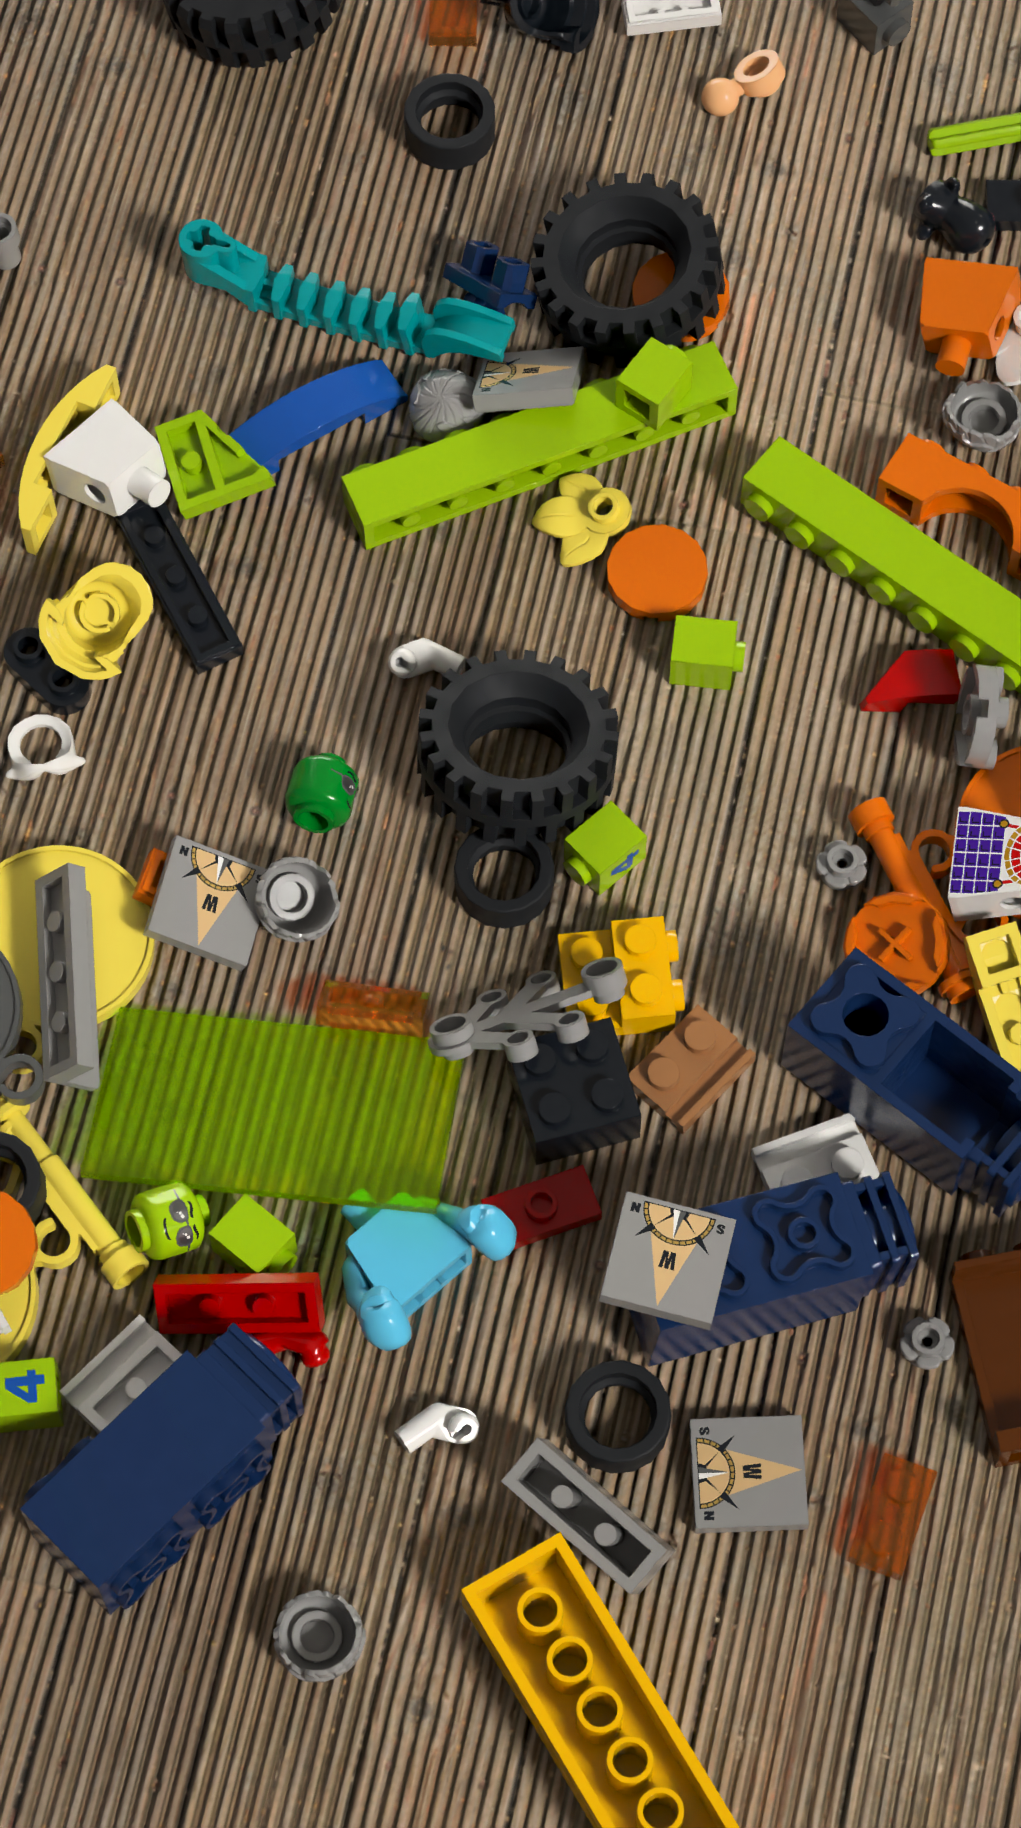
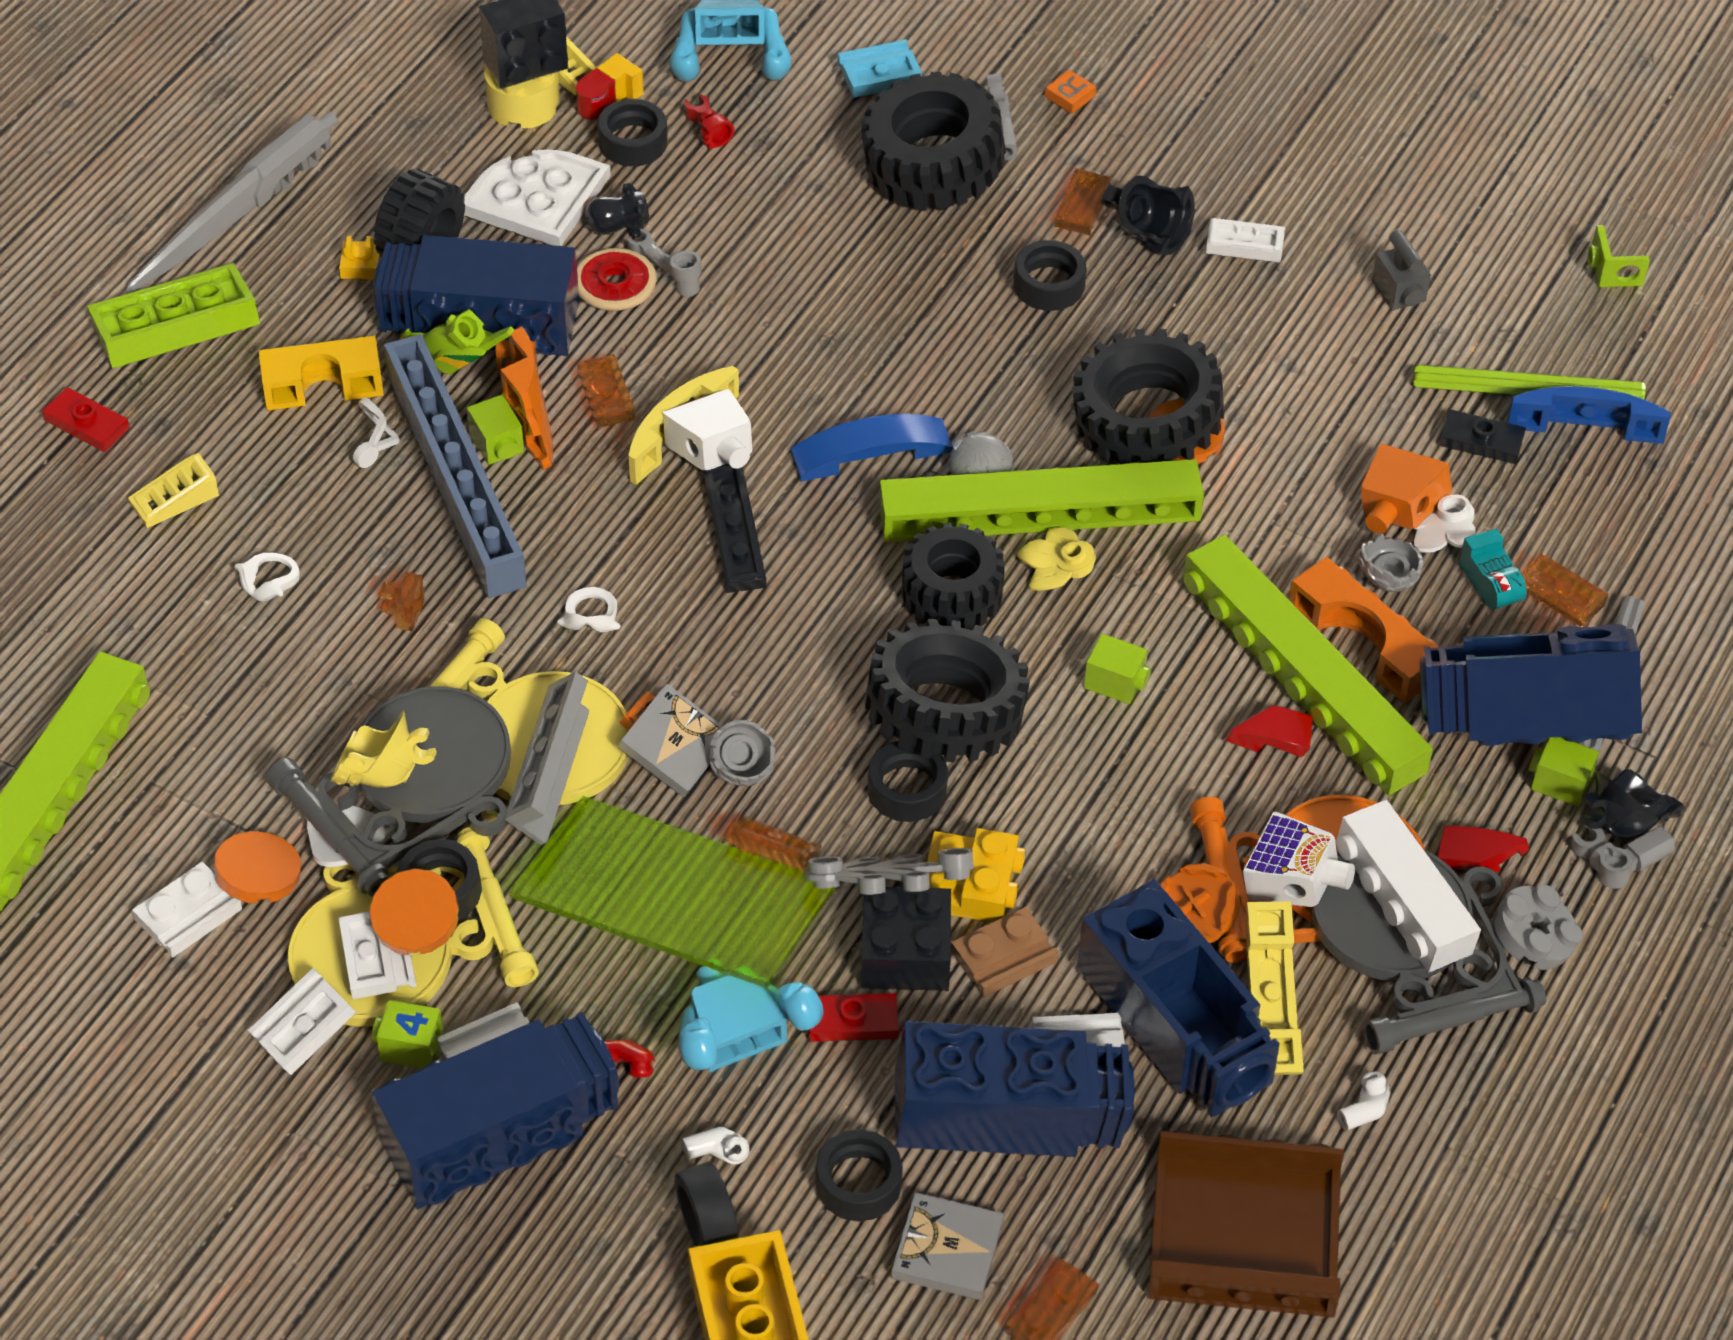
camera: 15 degrees right, 15 degrees down
(40, 674) = (608, 554): black plate -> none
(96, 620) = (660, 528): light yellow helmet -> none
(167, 1221) = (562, 943): lime head -> none
(207, 465) = (784, 453): lime wing -> none
(248, 1299) = (612, 1014): red plate -> none
(254, 1239) = (622, 977): lime brick -> none
(318, 1636) = (568, 1261): light grey hair -> none
(321, 792) = (788, 688): green head -> none
(424, 656) = (893, 617): white arm -> none
(454, 327) = (845, 323): teal piece -> none
(460, 1523) = (705, 1205): none -> black tyre
(464, 549) = (953, 553): none -> black tyre
(487, 285) = (1040, 381): dark blue hips -> none
(529, 380) = (1046, 452): light grey tile -> none
(588, 1516) = (809, 1233): light grey brick -> none
(603, 849) = (990, 781): lime brick -> none
(654, 383) = (1138, 471): lime brick -> none
(657, 572) = (1100, 606): orange tile -> none
(667, 1260) = (927, 1047): light grey tile -> none
(754, 76) = (1293, 300): light nougat plate -> none
(837, 877) = (1170, 850): light grey plate -> none
(923, 1356) = (1119, 1201): light grey plate -> none
(959, 219) = (1418, 429): black animal -> none
(981, 715) = (1316, 760): light grey plate -> none

